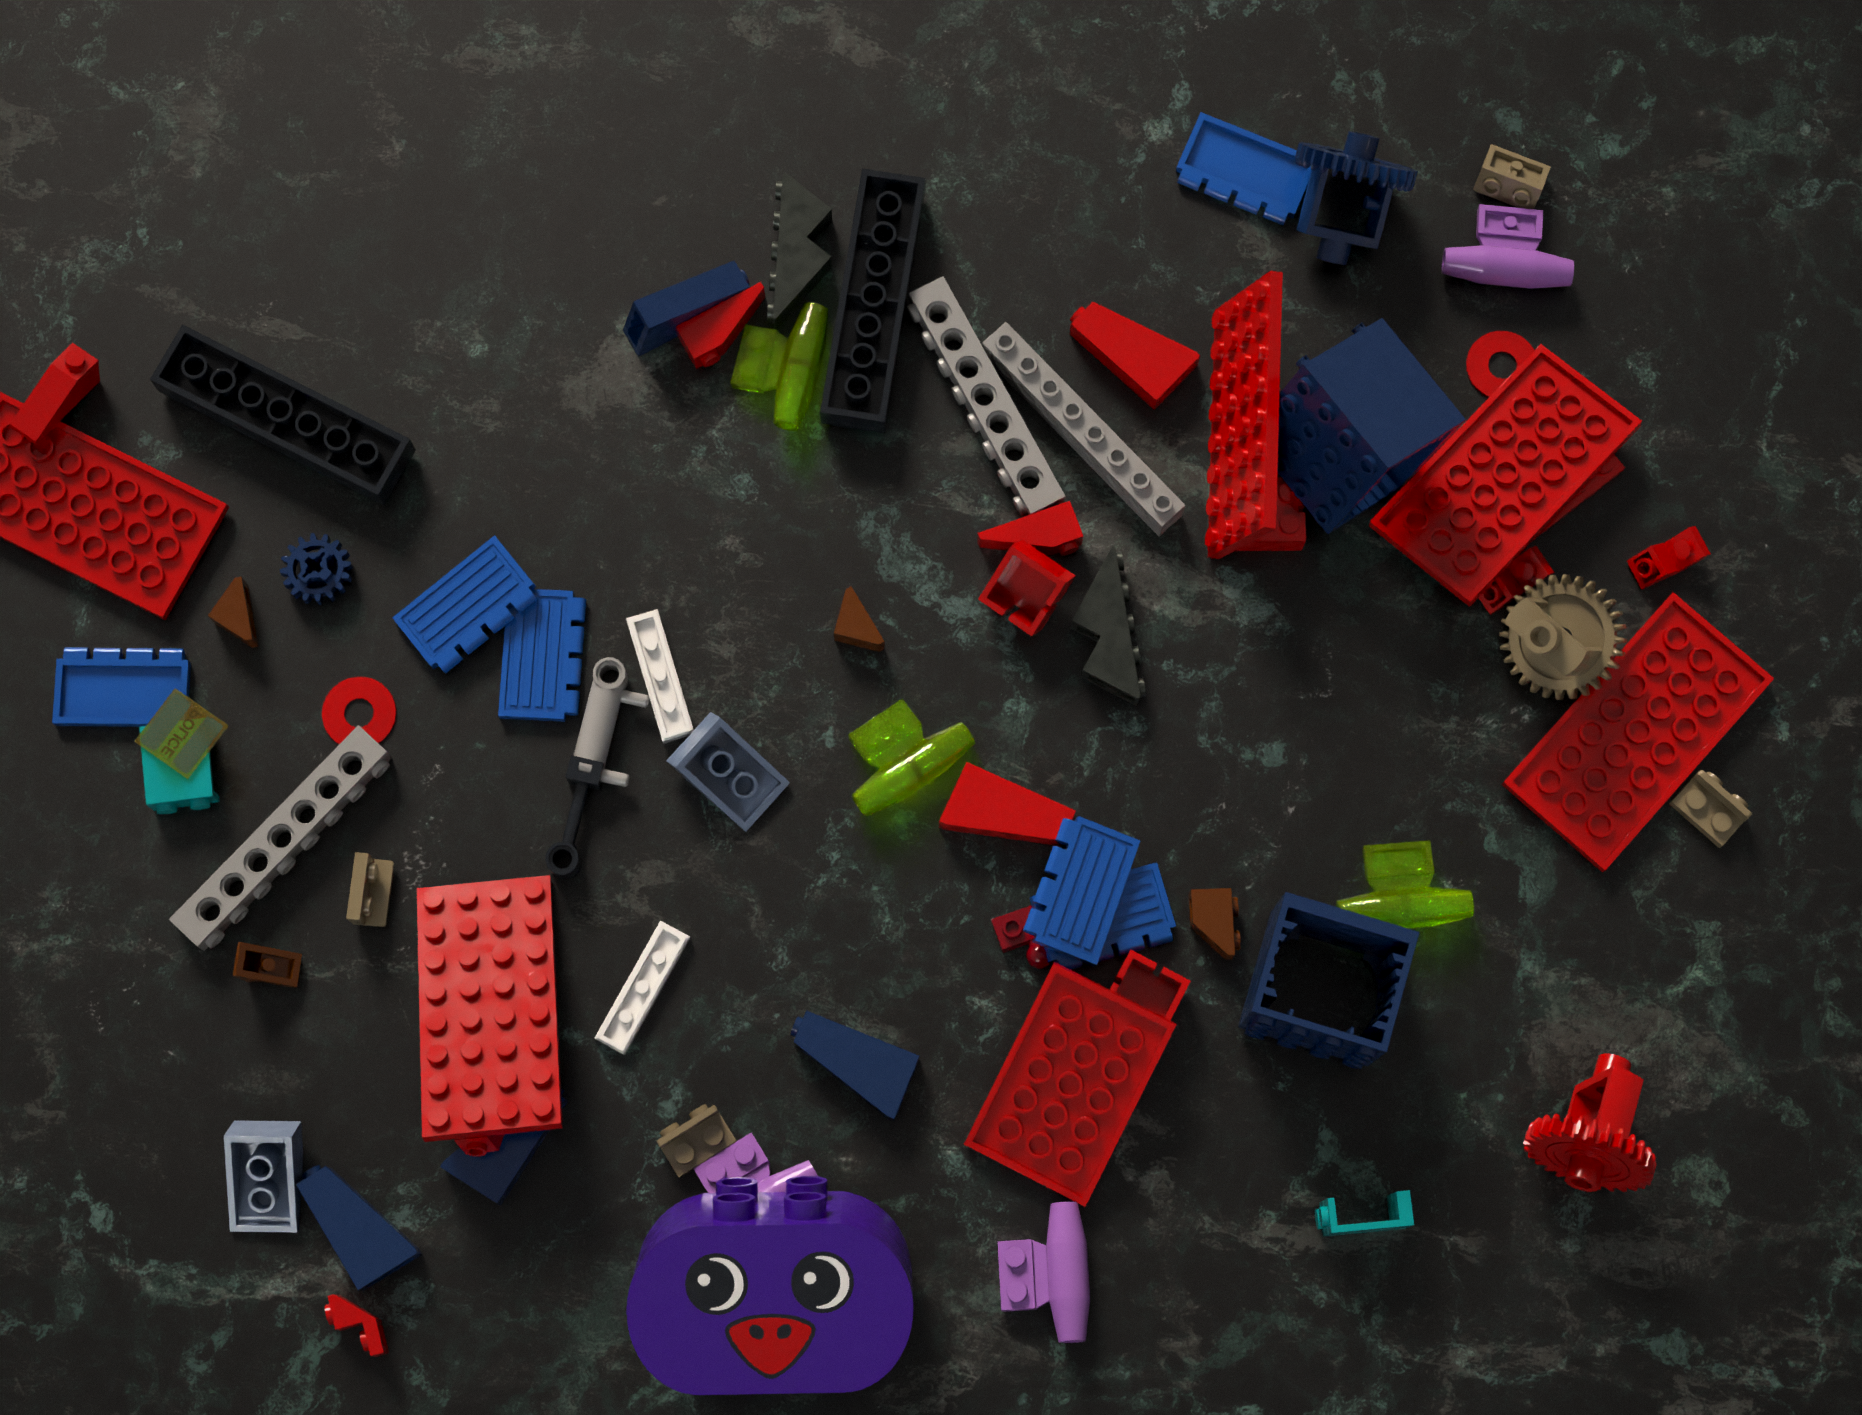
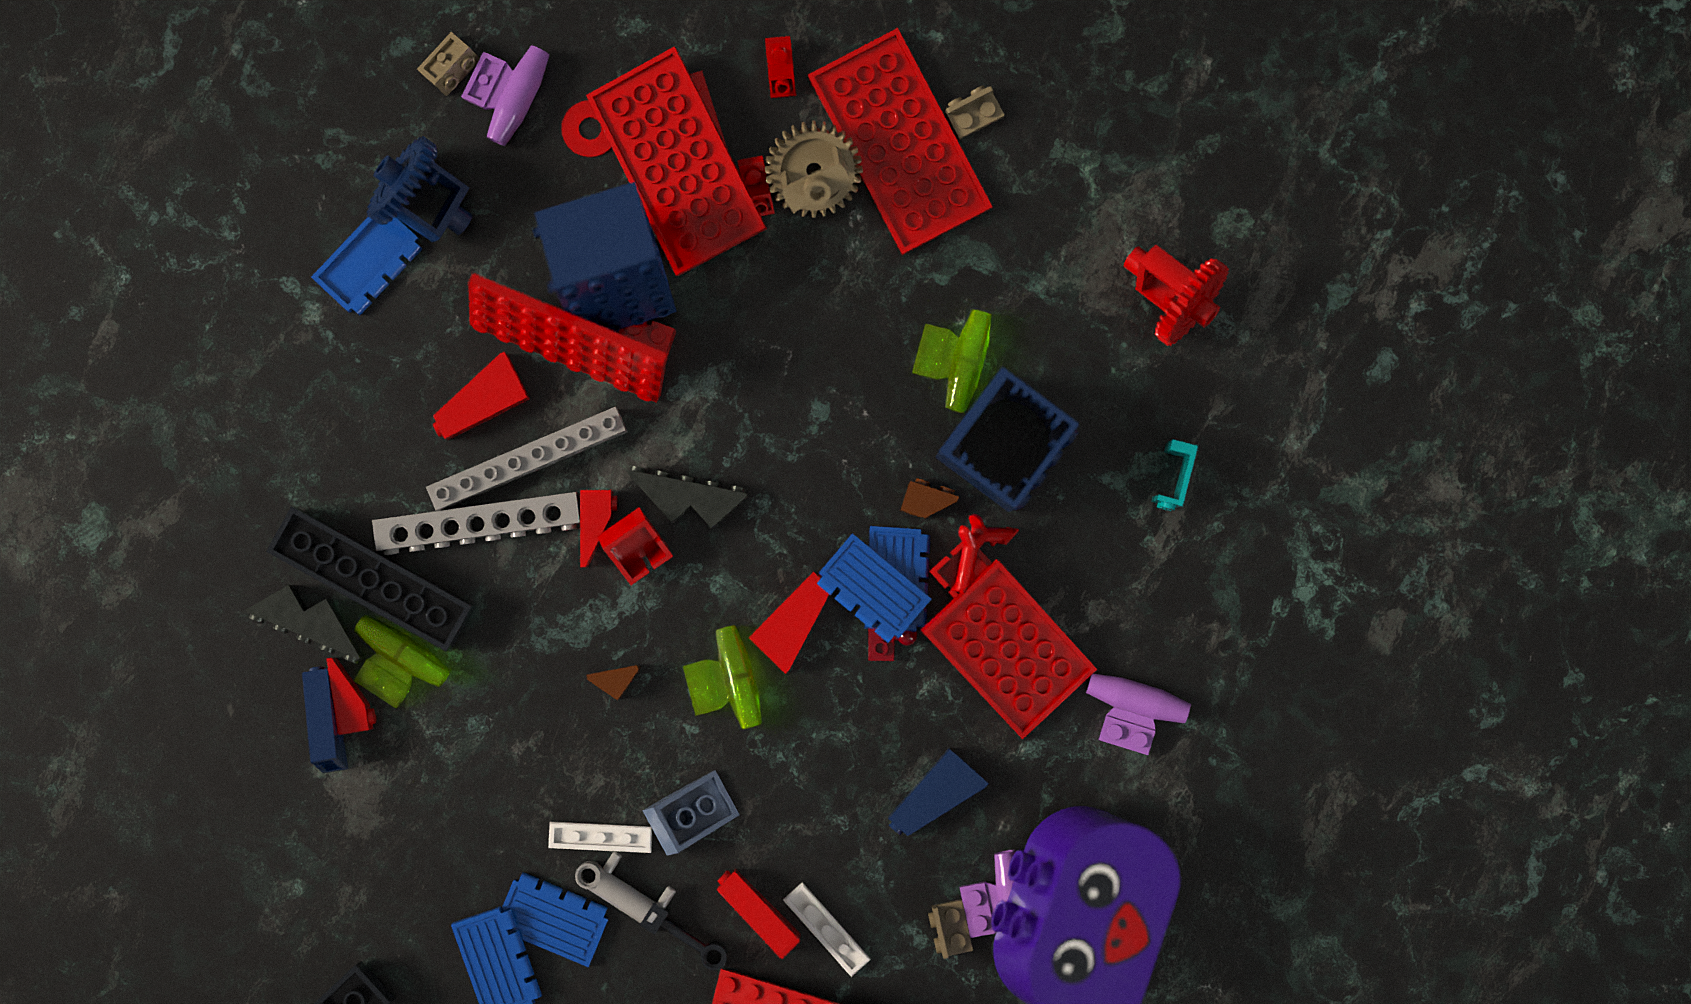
camera: 70 degrees left, 10 degrees up
(634, 894) = (758, 912): none -> red slope
(1187, 988) = (972, 541): none -> red piece

